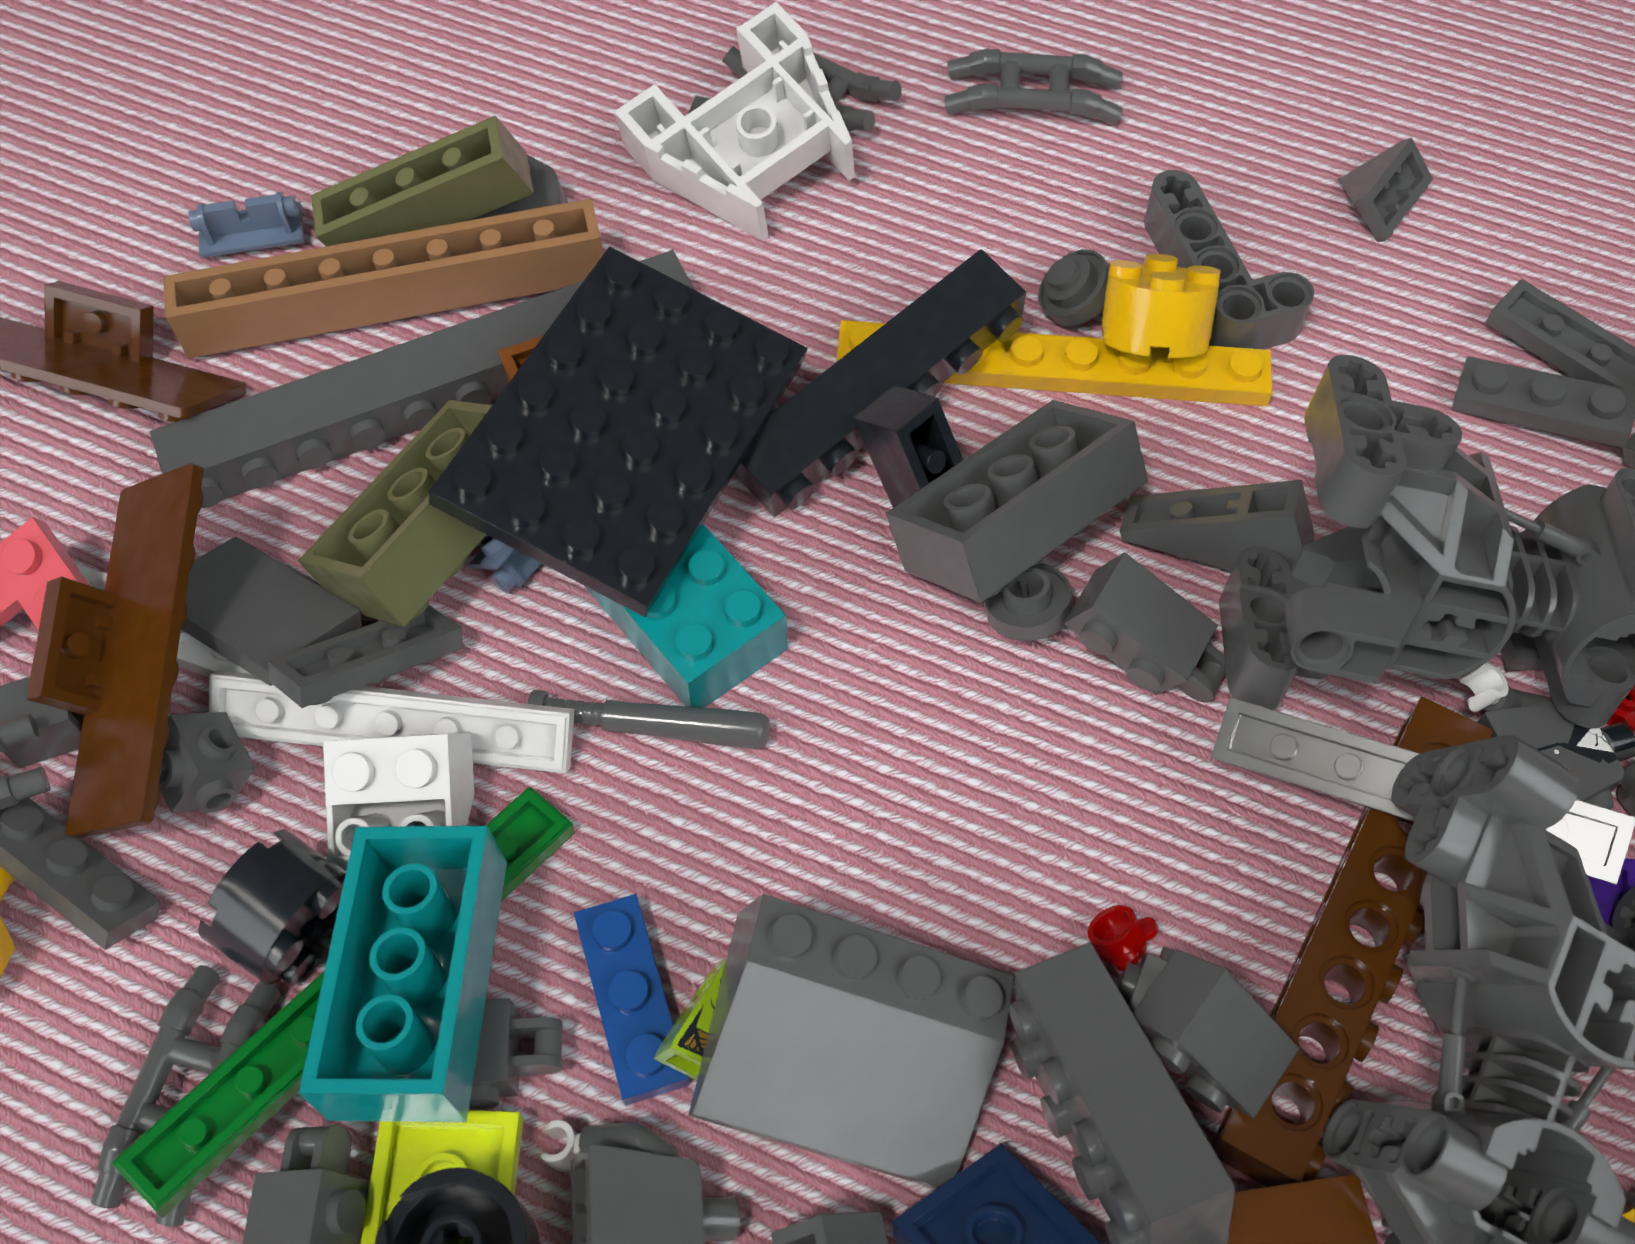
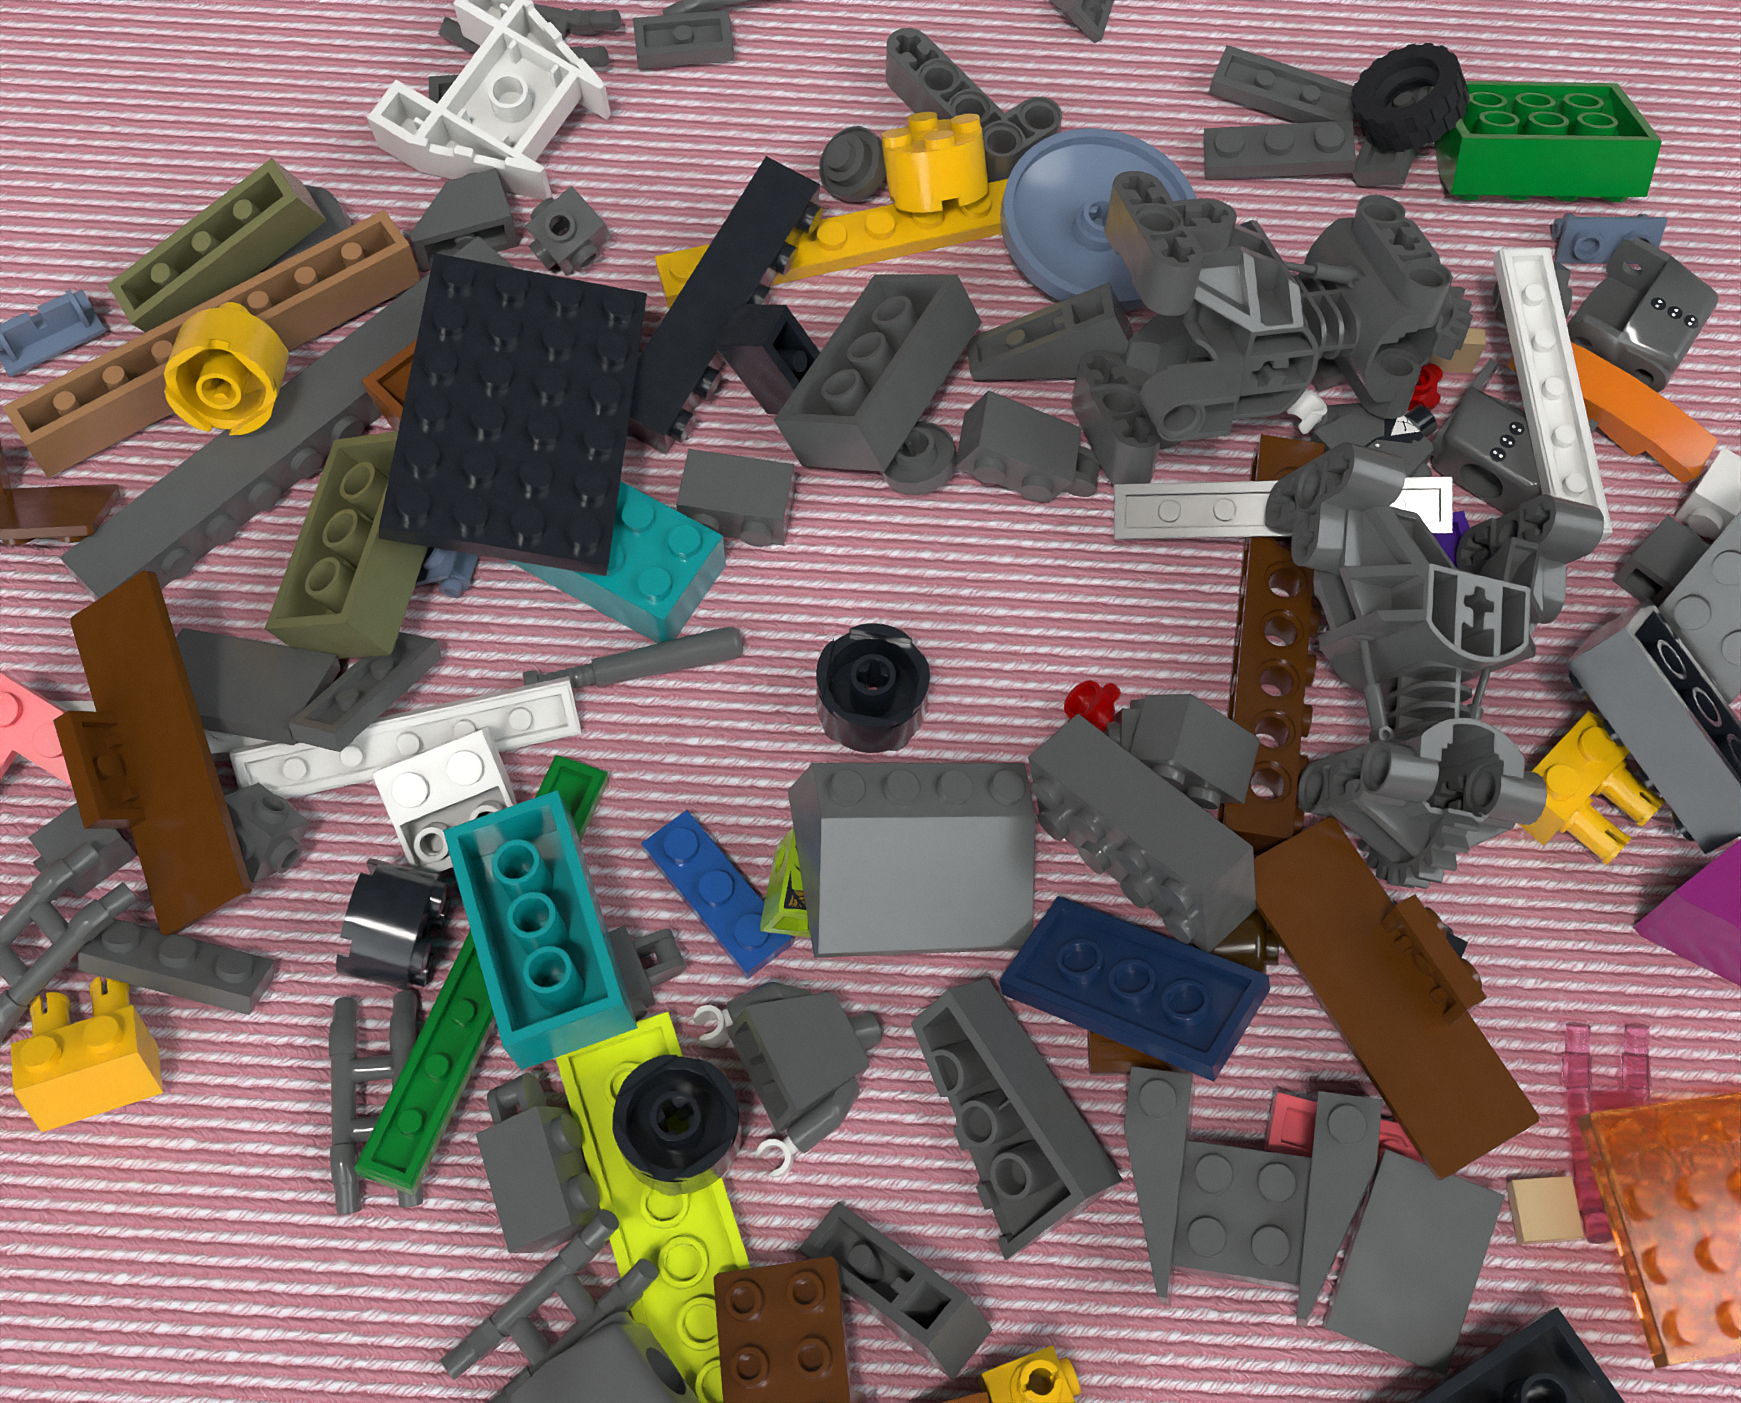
camera: 25 degrees left, 5 degrees up
(368, 300) = (225, 370): none -> yellow brick
(674, 222) = (460, 213): none -> dark grey slope
(761, 272) = (566, 232): none -> dark grey brick
(824, 582) = (738, 496): none -> dark grey brick
(857, 807) = (872, 718): none -> black brick
(954, 126) = (683, 39): none -> dark grey plate
(1267, 383) = (1060, 204): none -> sand blue dish

